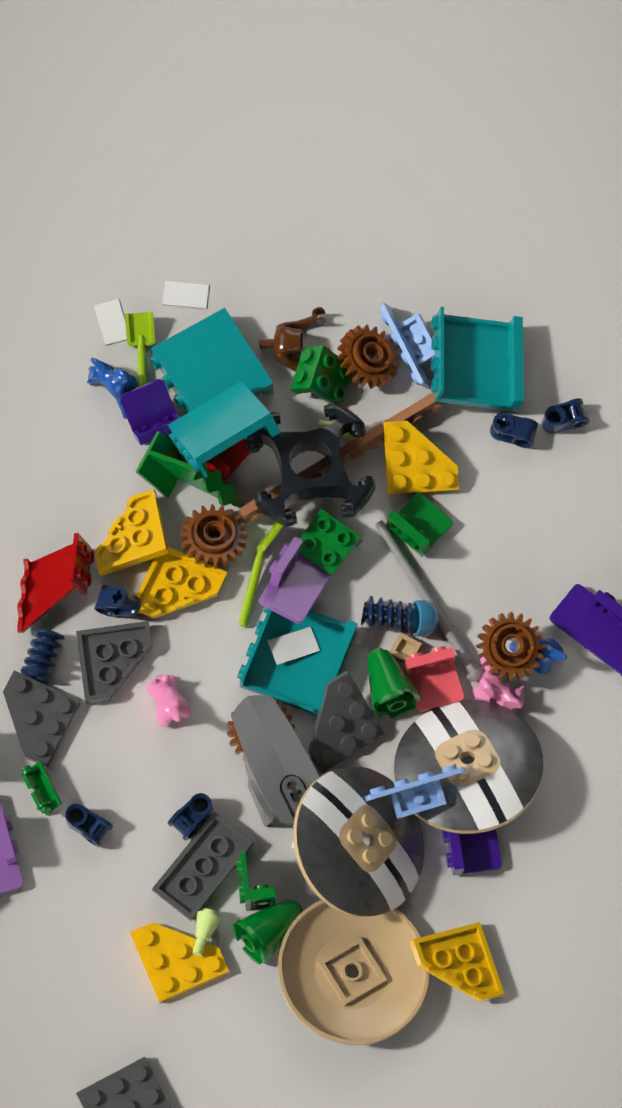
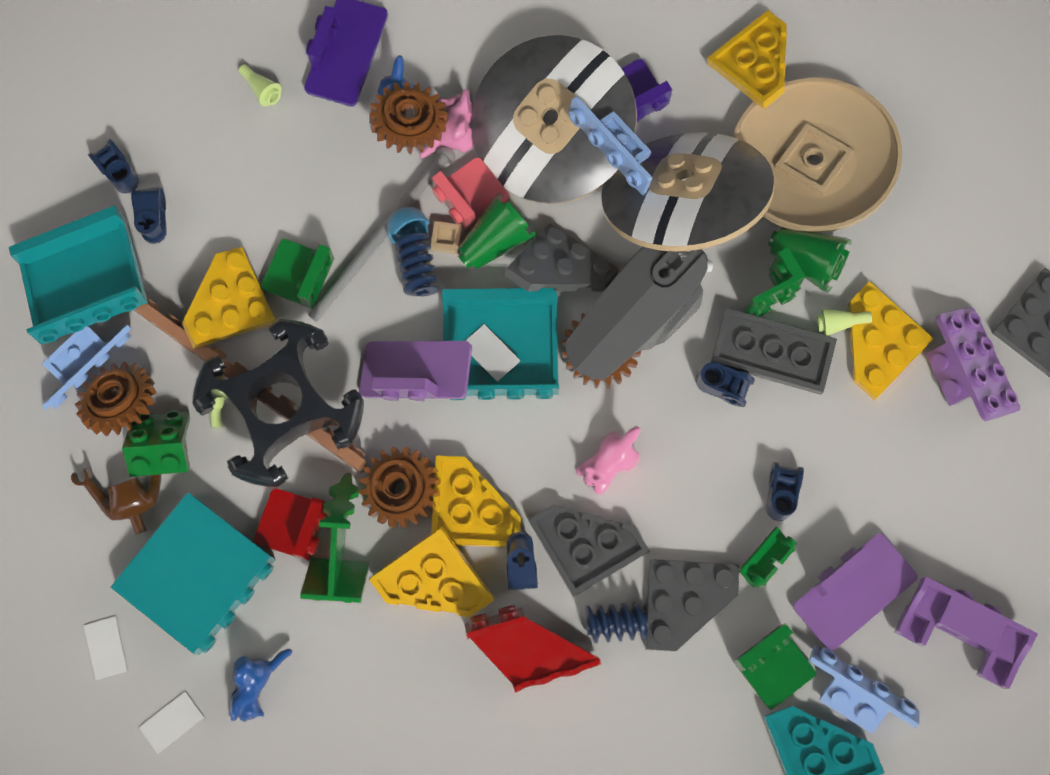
camera: 110 degrees left, 5 degrees up
(122, 1022) = (970, 367): none -> medium lavender bracket
(140, 333) = (177, 680): lime piece -> none
(149, 411) = (276, 620): dark purple bracket -> none
(220, 425) = (272, 516): teal panel -> none
(255, 574) = (389, 427): lime piece -> none
(328, 542) = (359, 356): green bracket -> none
(589, 552) = (266, 90): none -> yellowish green cone

